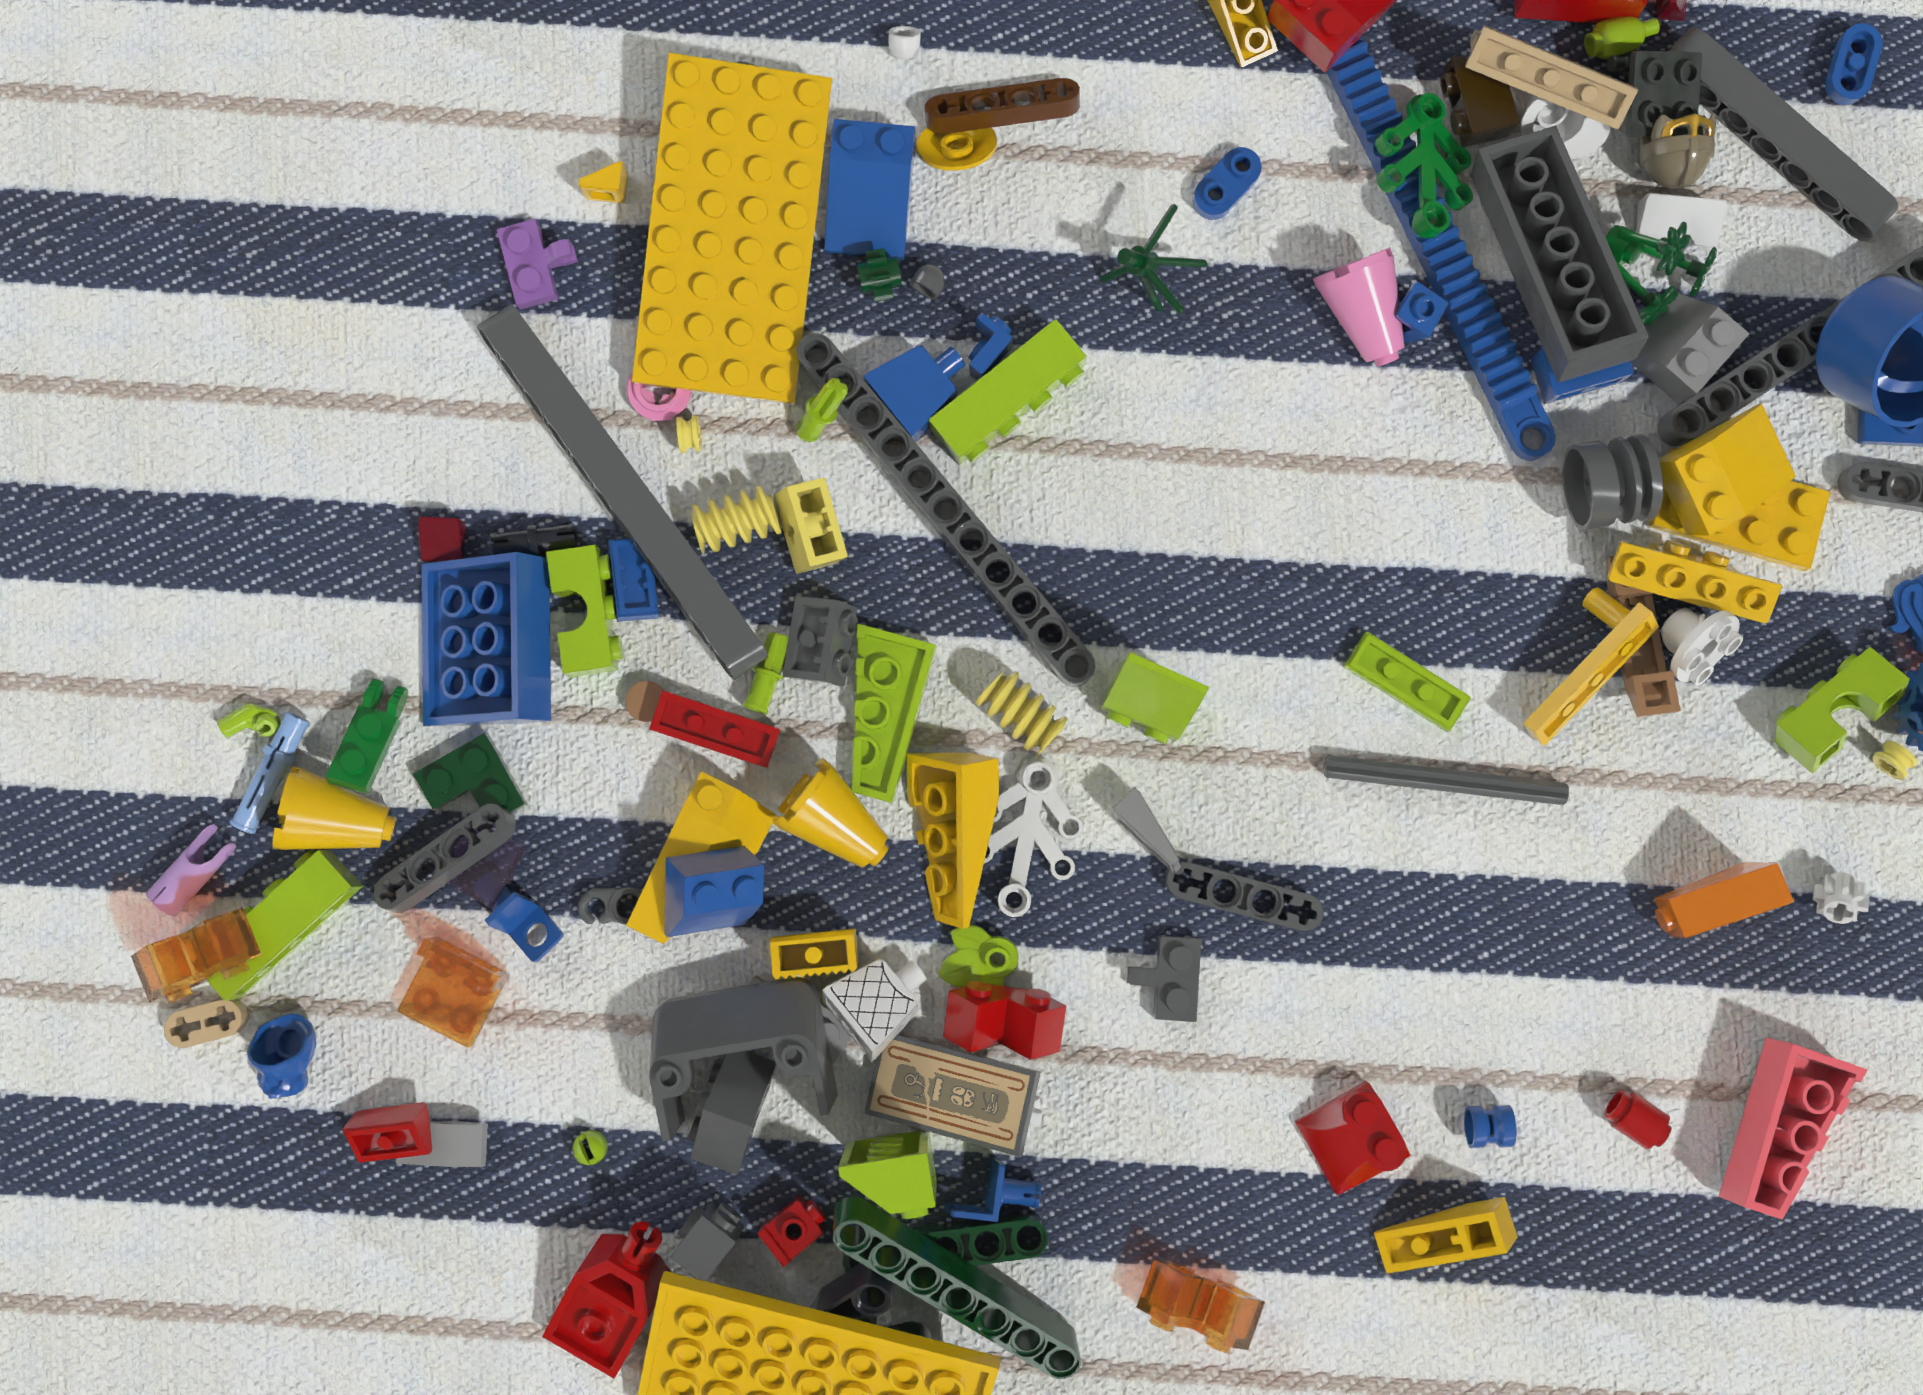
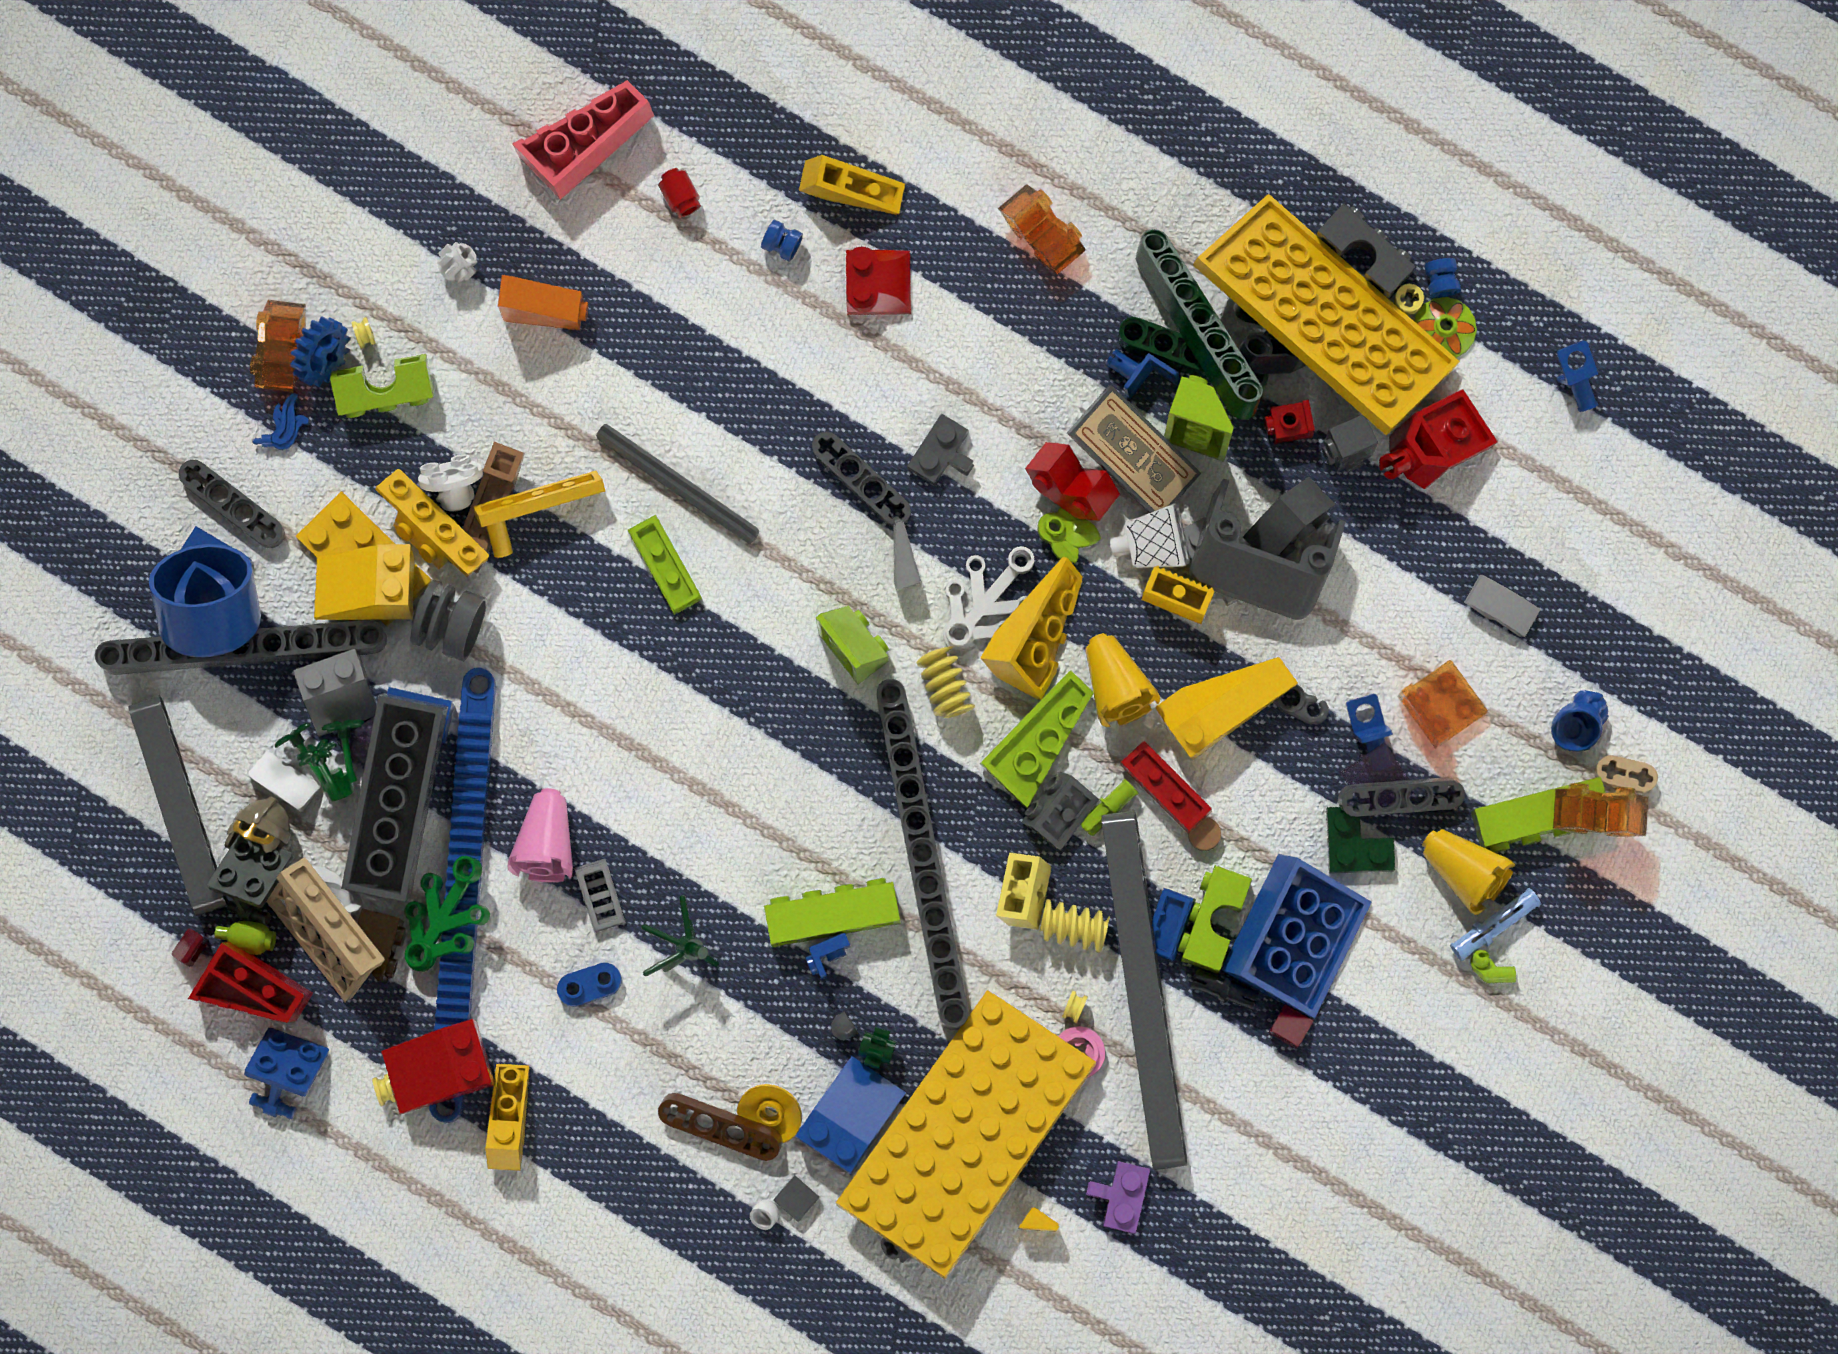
camera: 145 degrees left, 5 degrees down
(187, 874) = (1590, 882): lavender piece -> none
(367, 739) = (1414, 907): green hinge -> none
(390, 1132) = (1533, 631): red slope -> none
(597, 1145) = (1395, 549): lime hinge -> none
(711, 890) = (1224, 673): blue slope -> none
(821, 410) = (972, 968): lime axle -> none
(880, 78) = (796, 1198): none -> dark grey tile
(916, 386) = (895, 952): blue torso -> none
(1274, 304) = (591, 868): none -> light grey slope
(1420, 312) = (511, 810): blue bracket -> none
(1853, 67) = (91, 824): blue plate -> none

